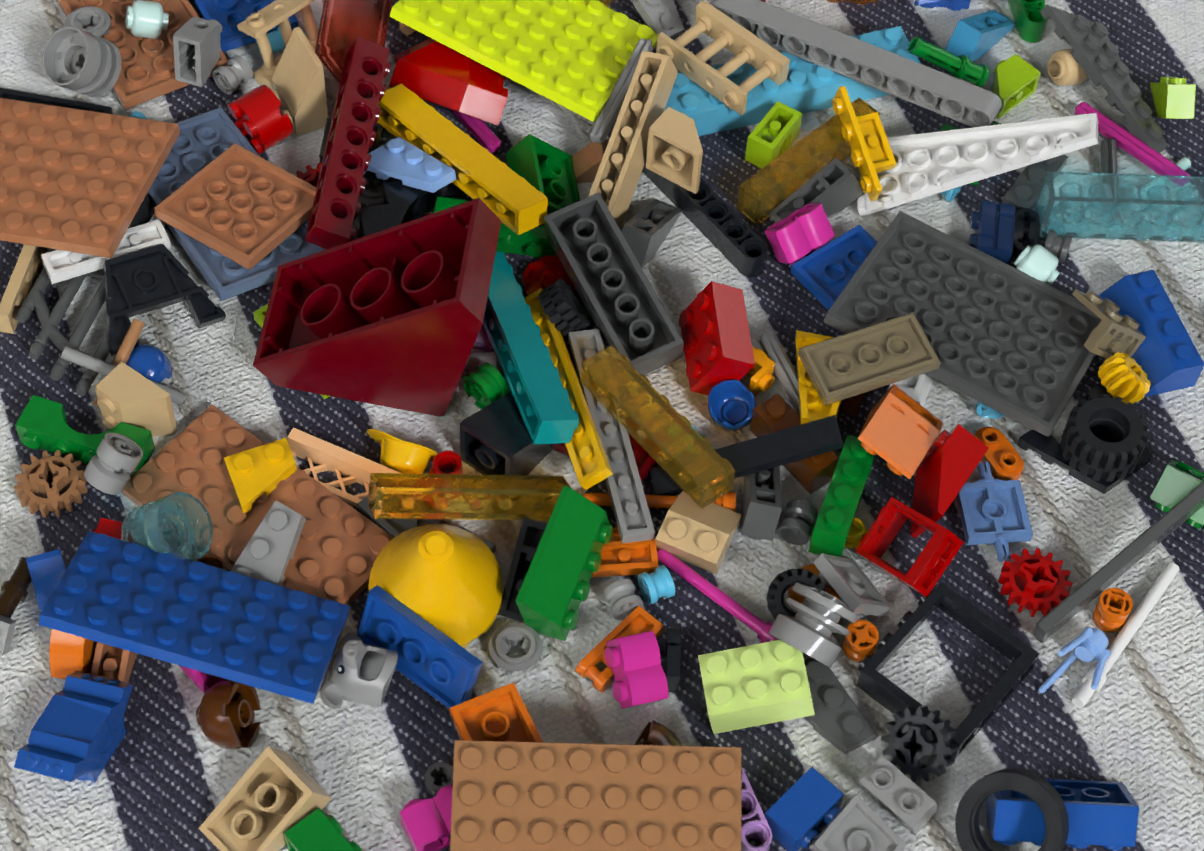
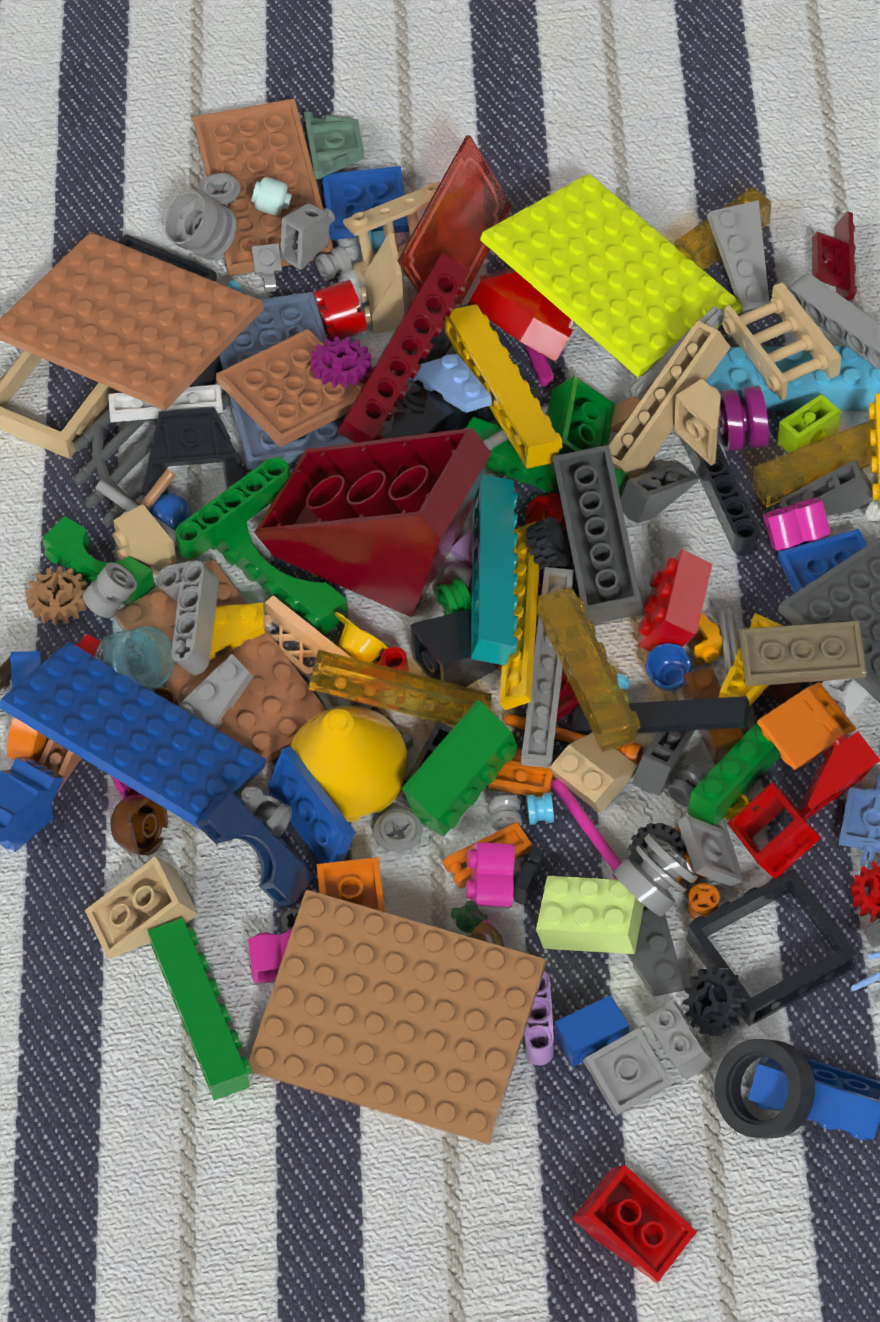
camera: 25 degrees right, 0 degrees up
(164, 86) = (267, 262): none -> light grey plate
(213, 444) = (196, 594): none -> light grey beam
(219, 345) = (231, 508): none -> green beam
(223, 376) = (310, 600): none -> green arch
(285, 168) = (340, 362): none -> magenta gear
(411, 728) = (282, 873): none -> dark blue arch
(628, 721) = (468, 916): none -> clear green plate
(718, 139) = (743, 418): none -> magenta wheel

